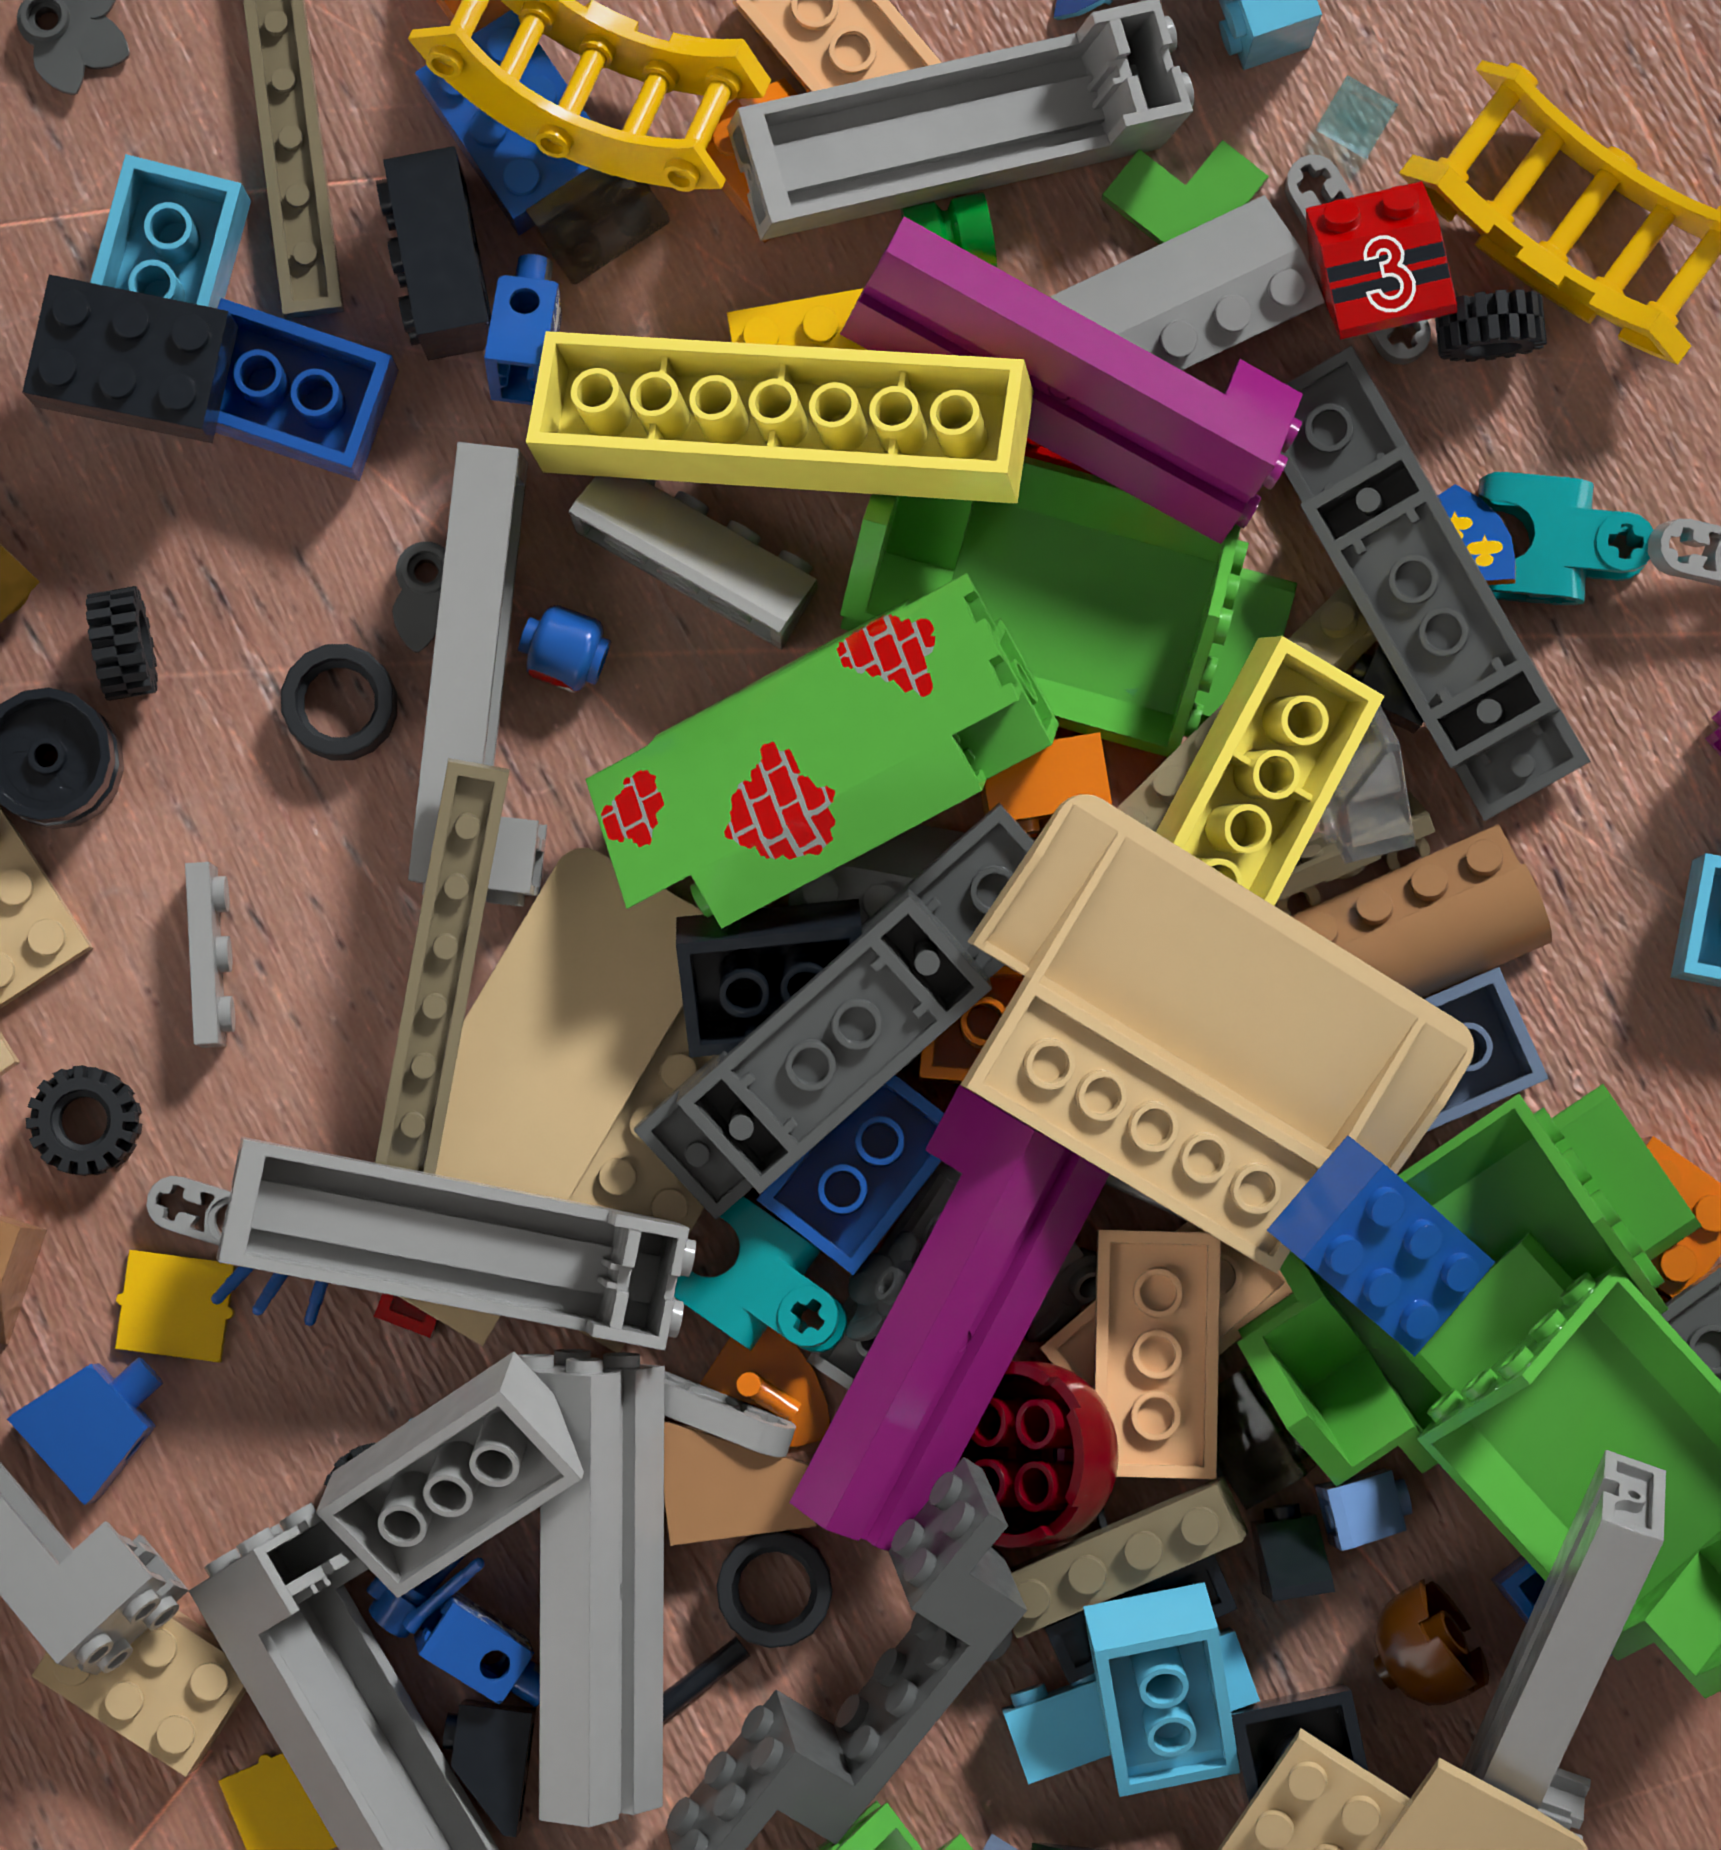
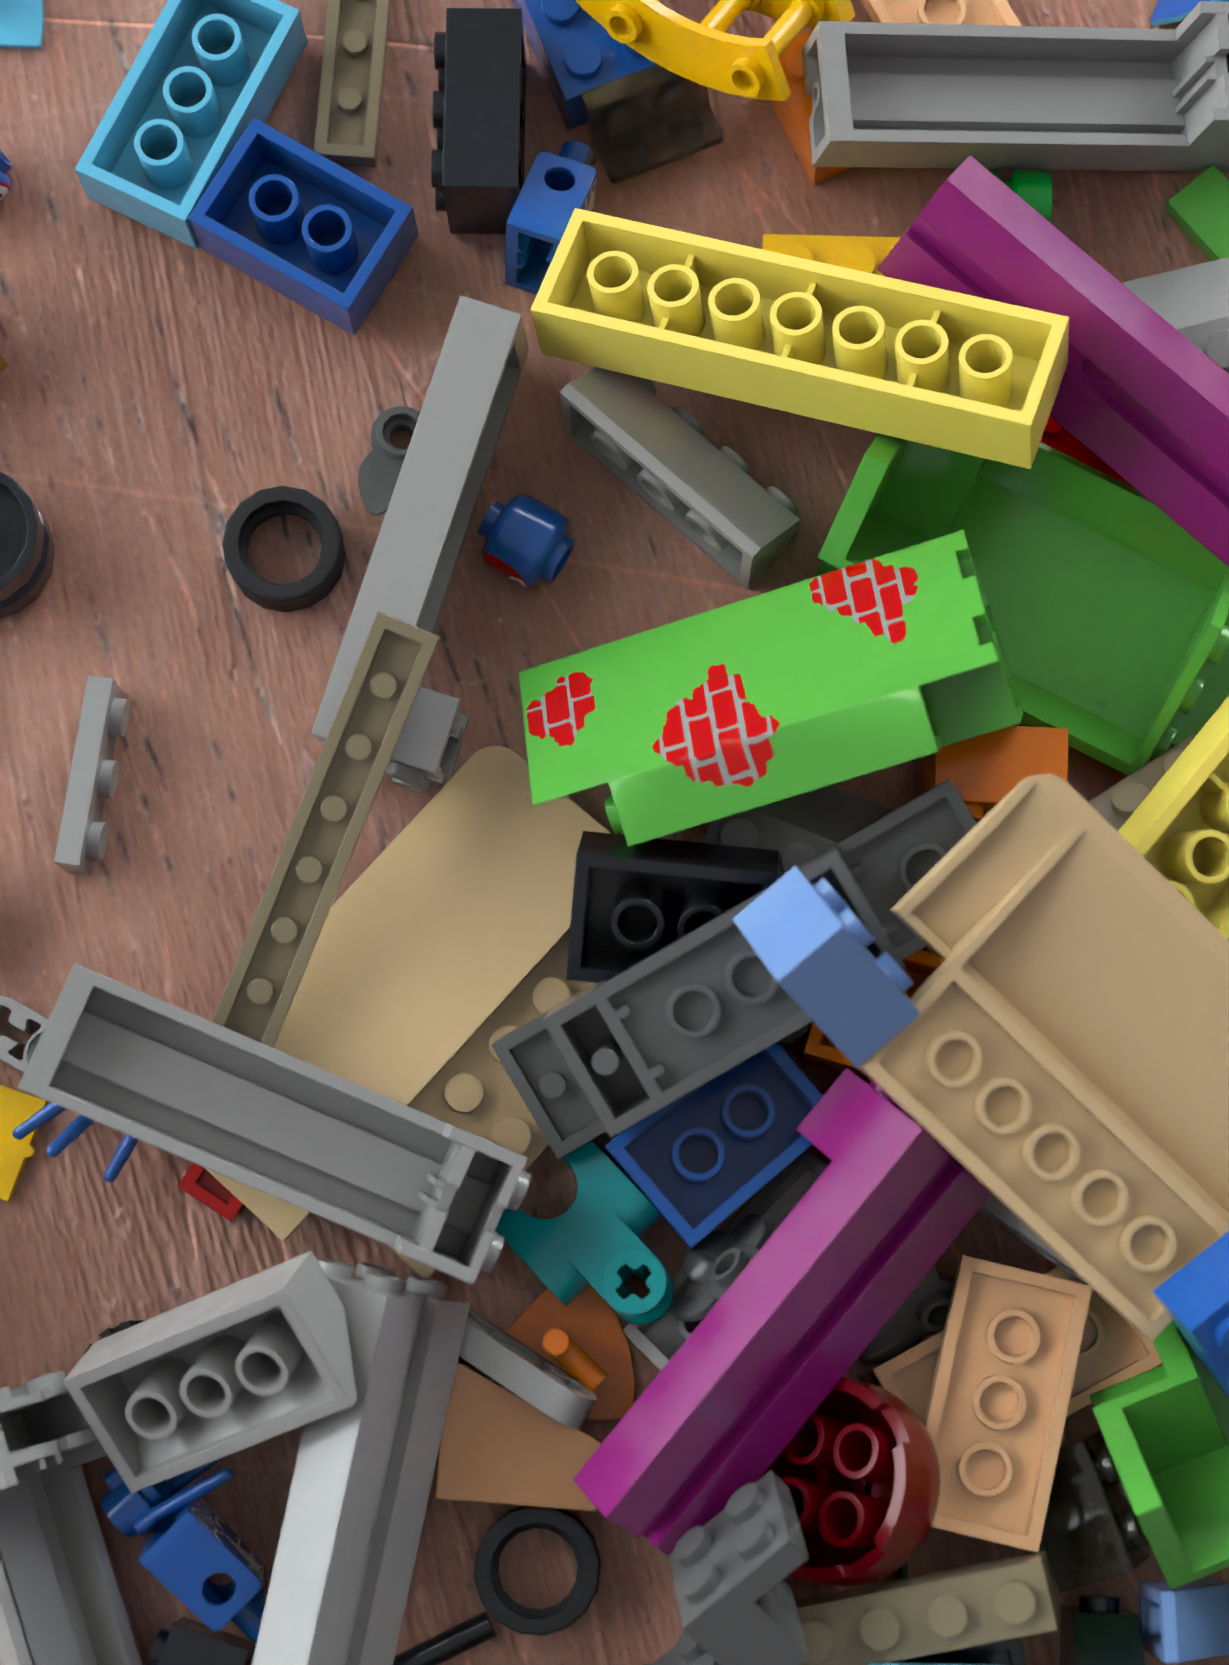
camera: 15 degrees right, 5 degrees down
(121, 643) = (75, 441): black tyre -> none
(130, 358) = (146, 151): black brick -> none
(917, 1006) = (823, 963): none -> medium blue brick

